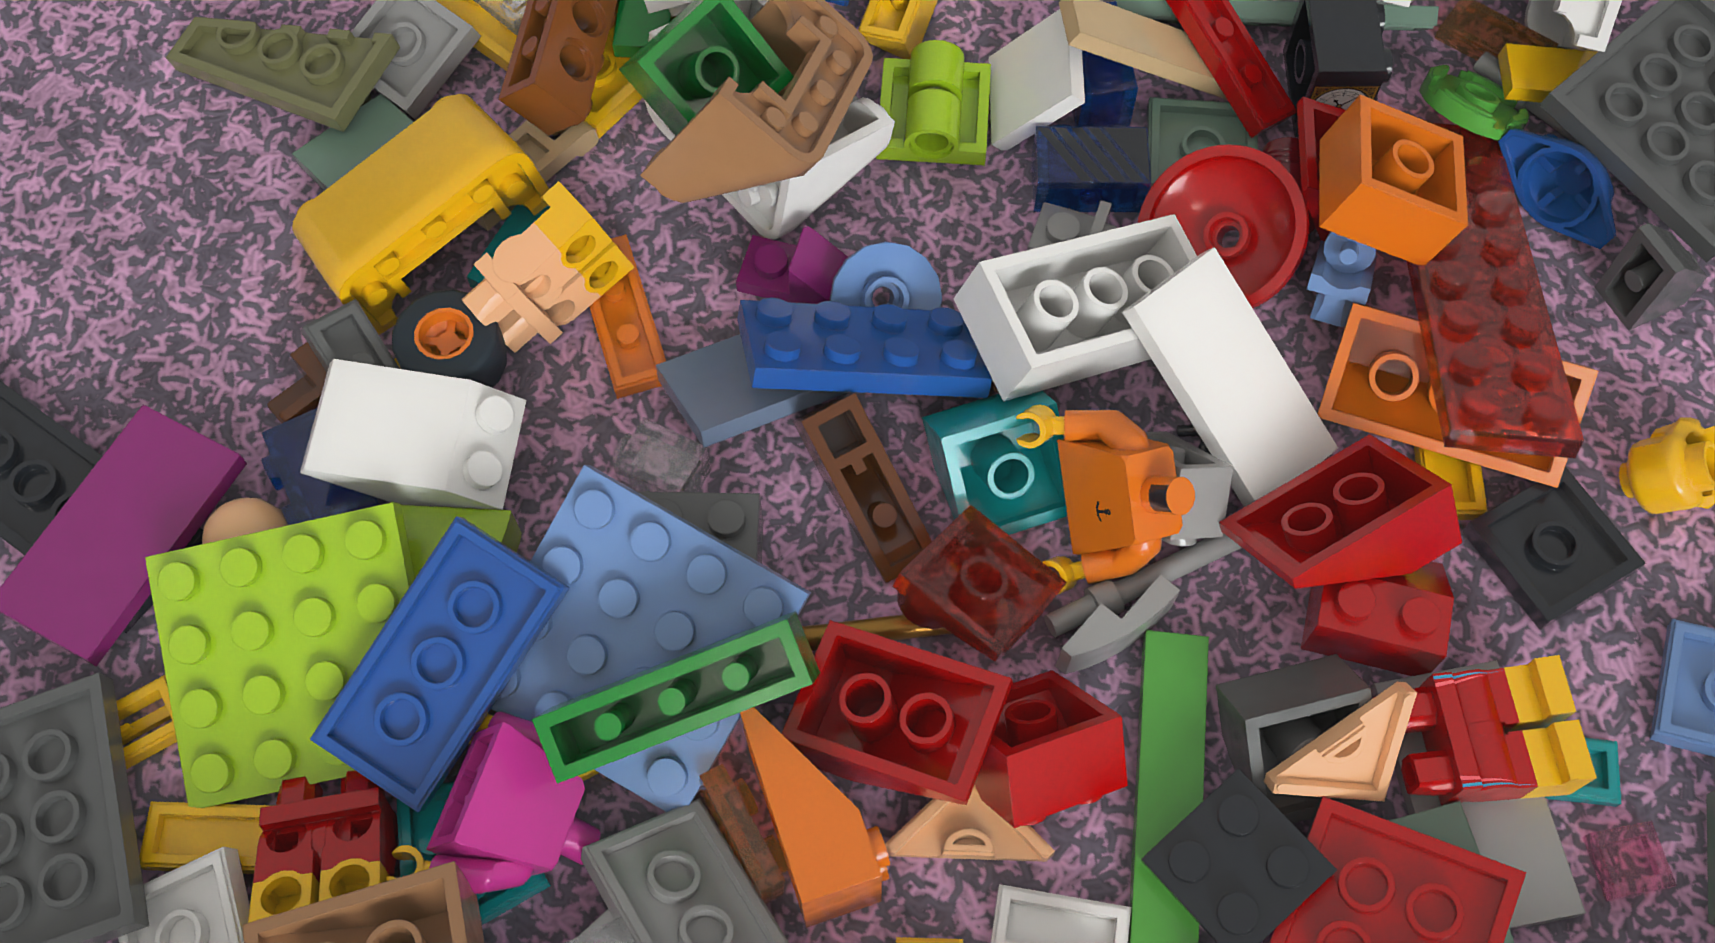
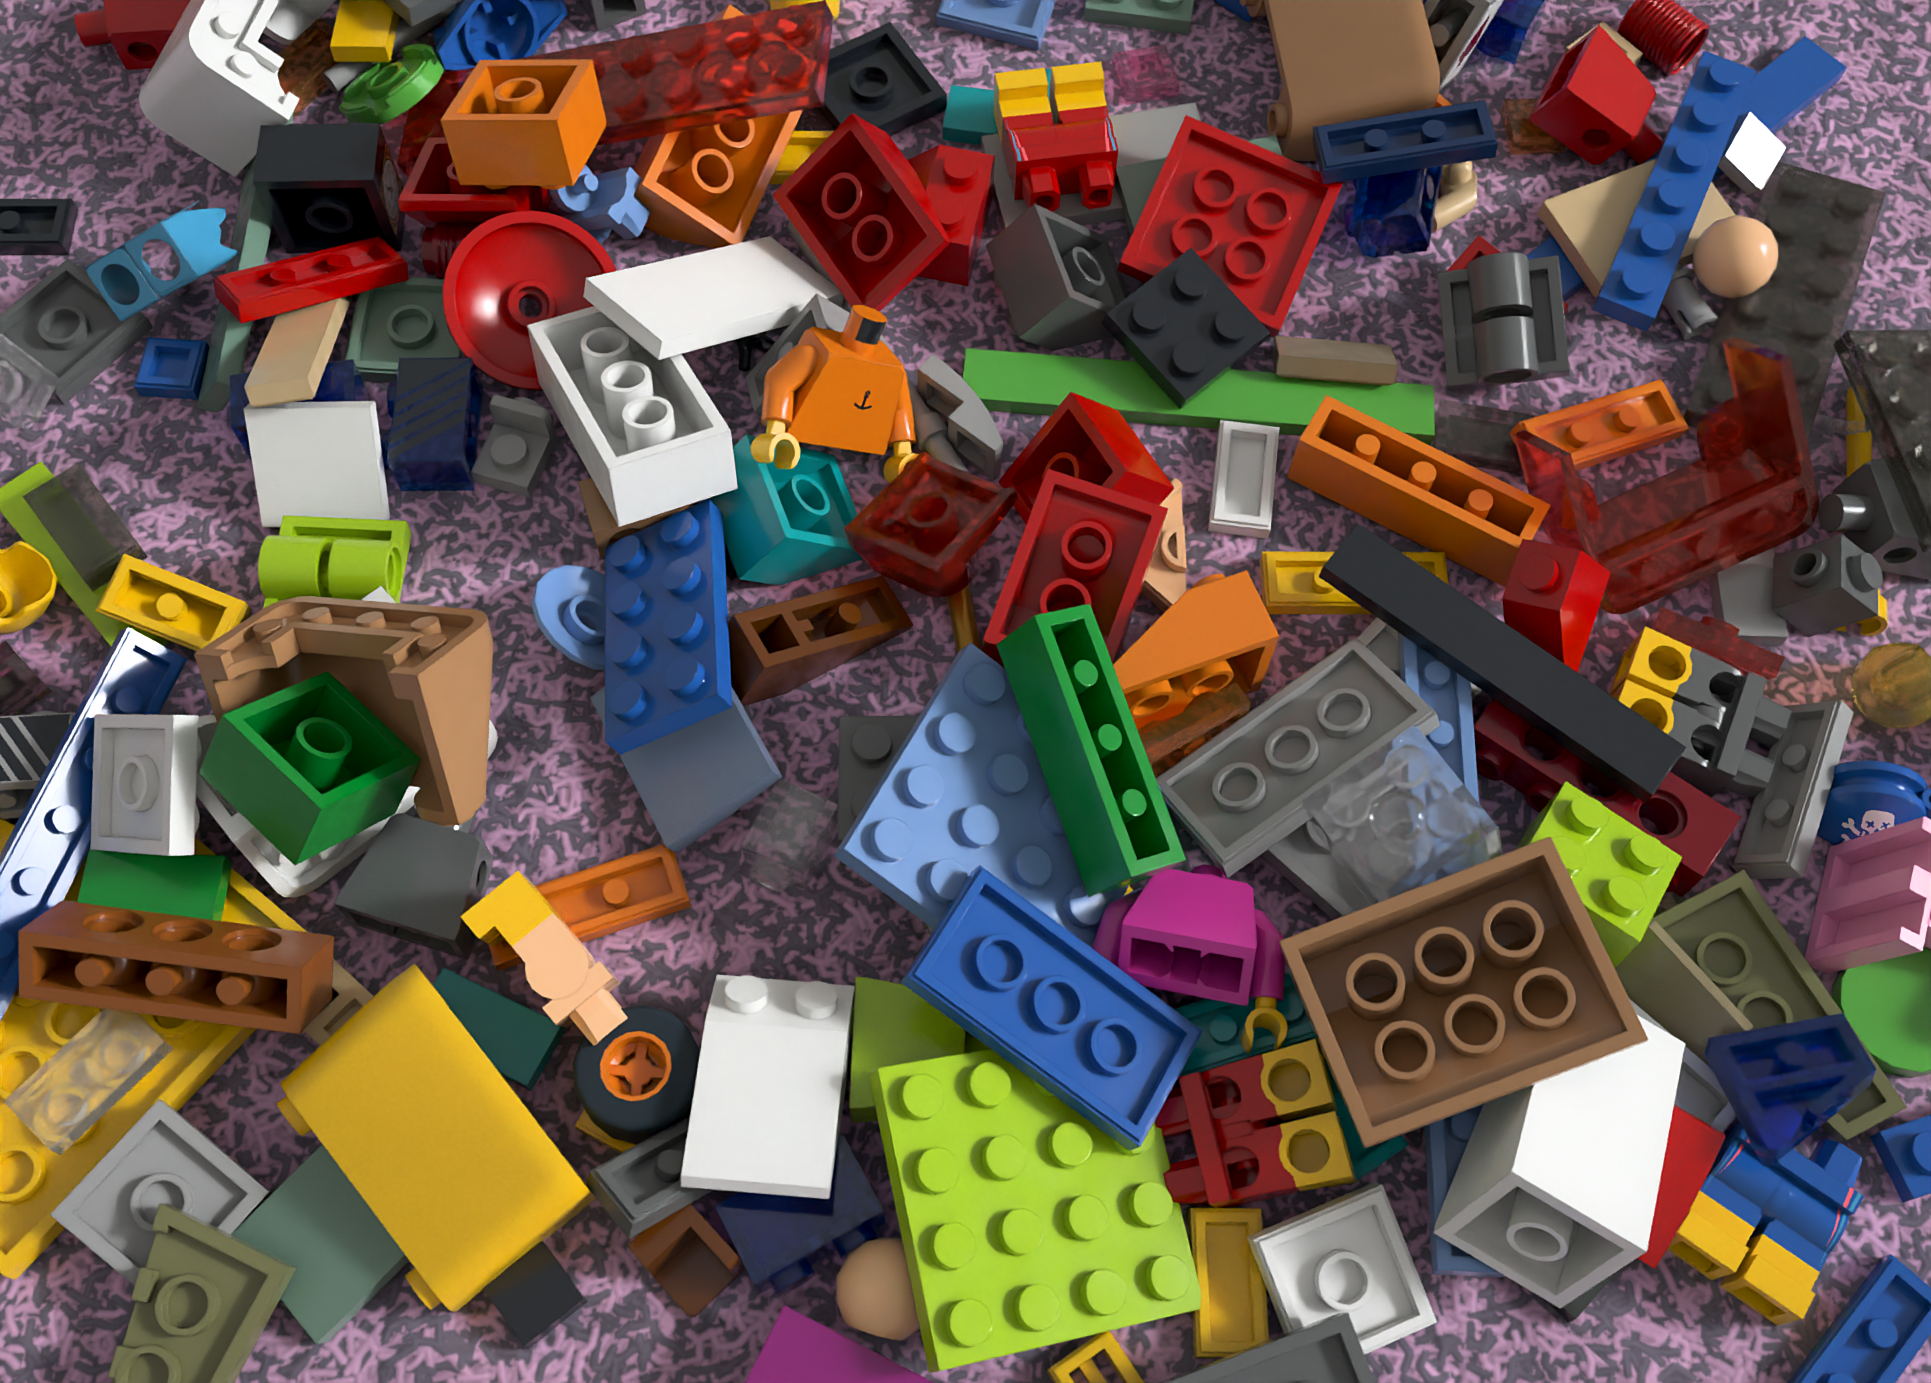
camera: 95 degrees left, 0 degrees up
(302, 295) = (535, 1295): none -> black tile
(630, 205) = (419, 883): none -> dark grey torso
(790, 271) = (543, 719): magenta slope -> none
(1354, 755) = (1084, 230): light nougat tile -> none
(1523, 642) = (968, 115): none -> teal tile

